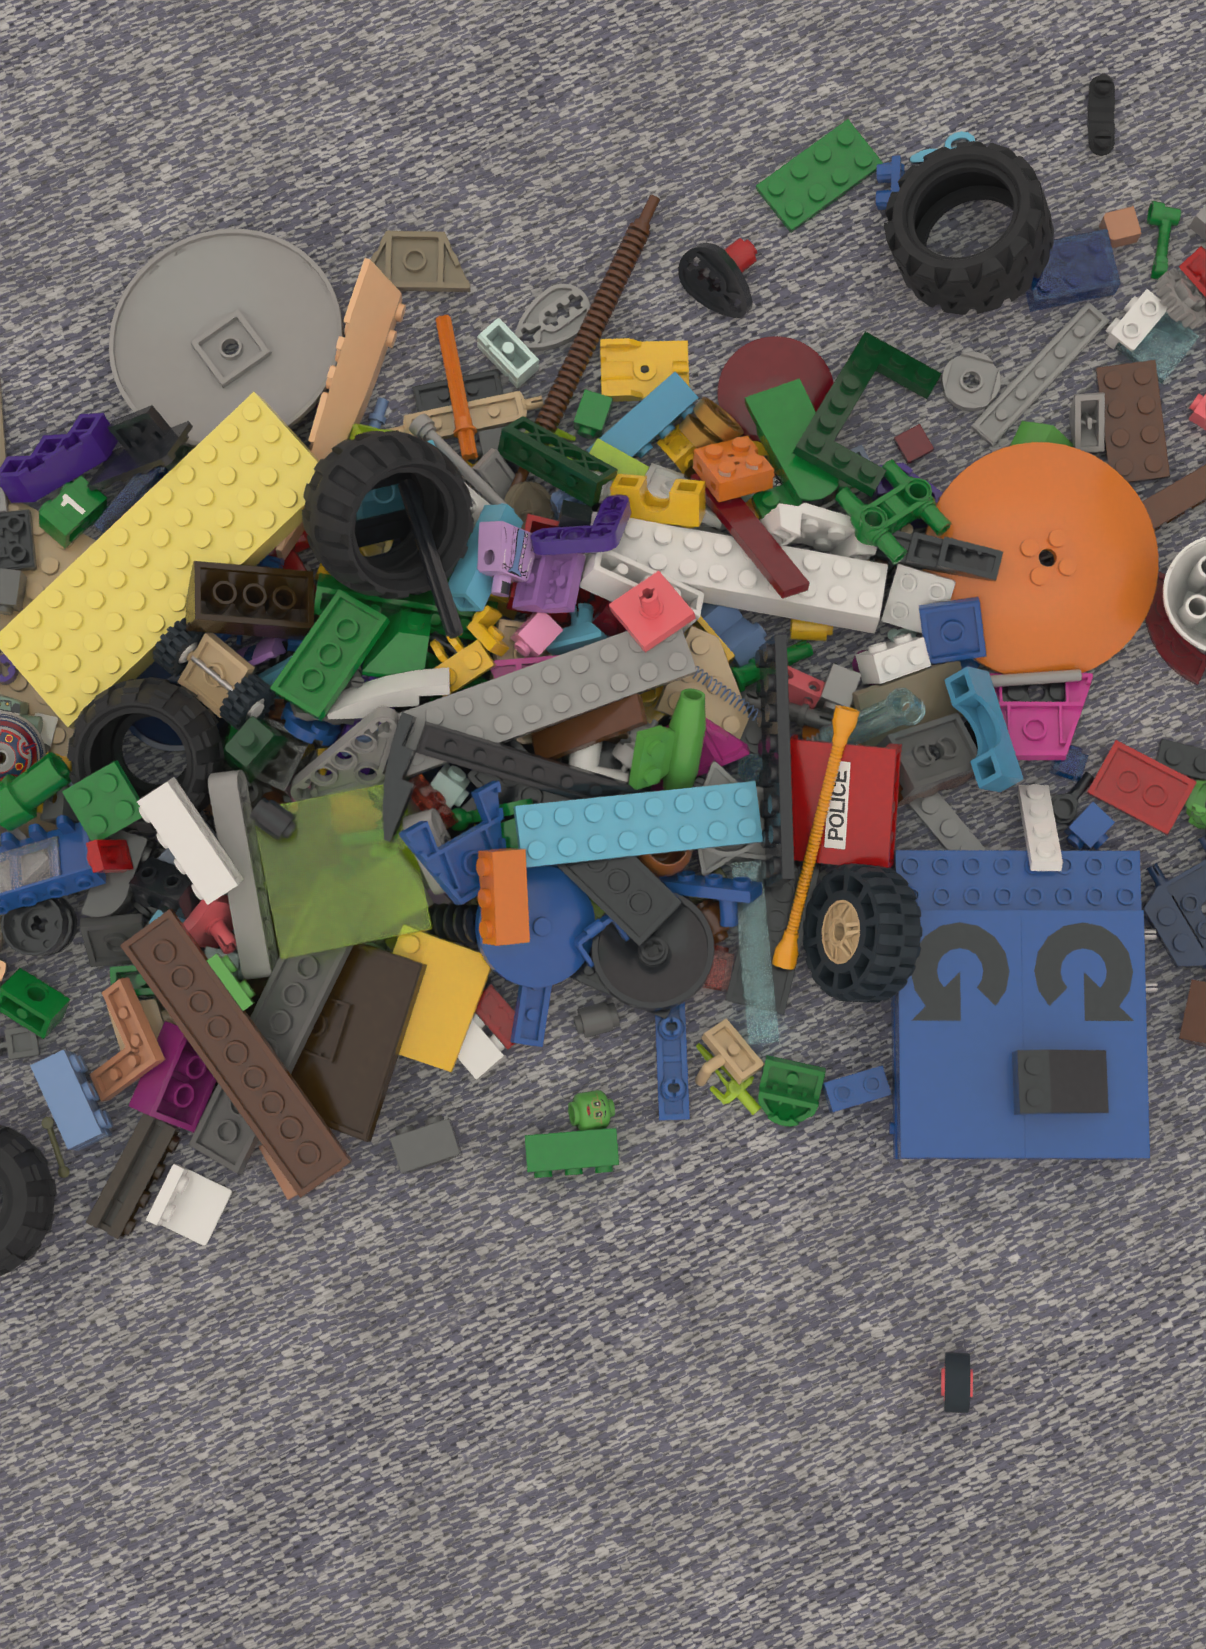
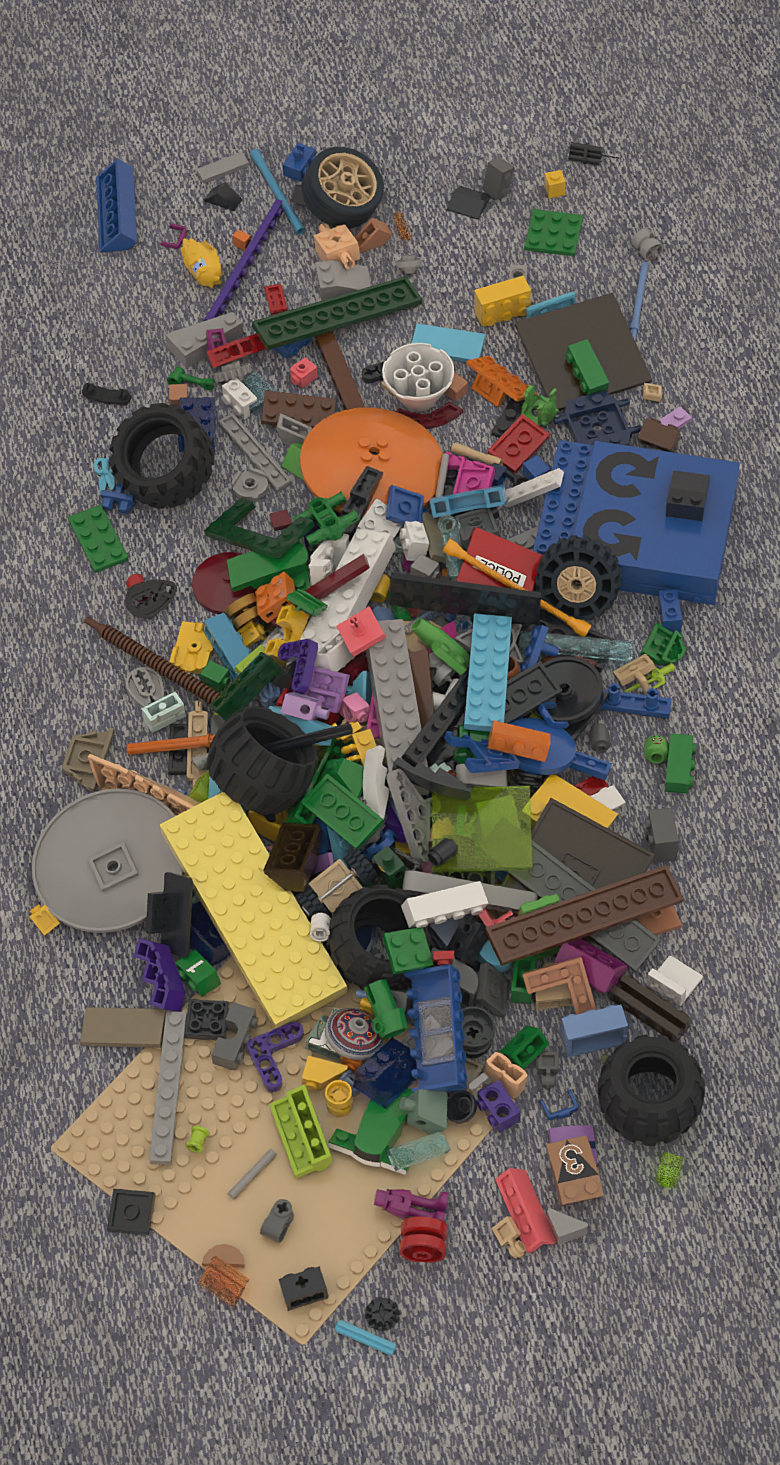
camera: 75 degrees left, 25 degrees down
(125, 268) = (43, 919): none -> yellow bracket
(138, 666) = (320, 927): none -> white wheel
(704, 504) = (306, 602): none -> green piece
(1110, 707) = (465, 451): none -> tan piece

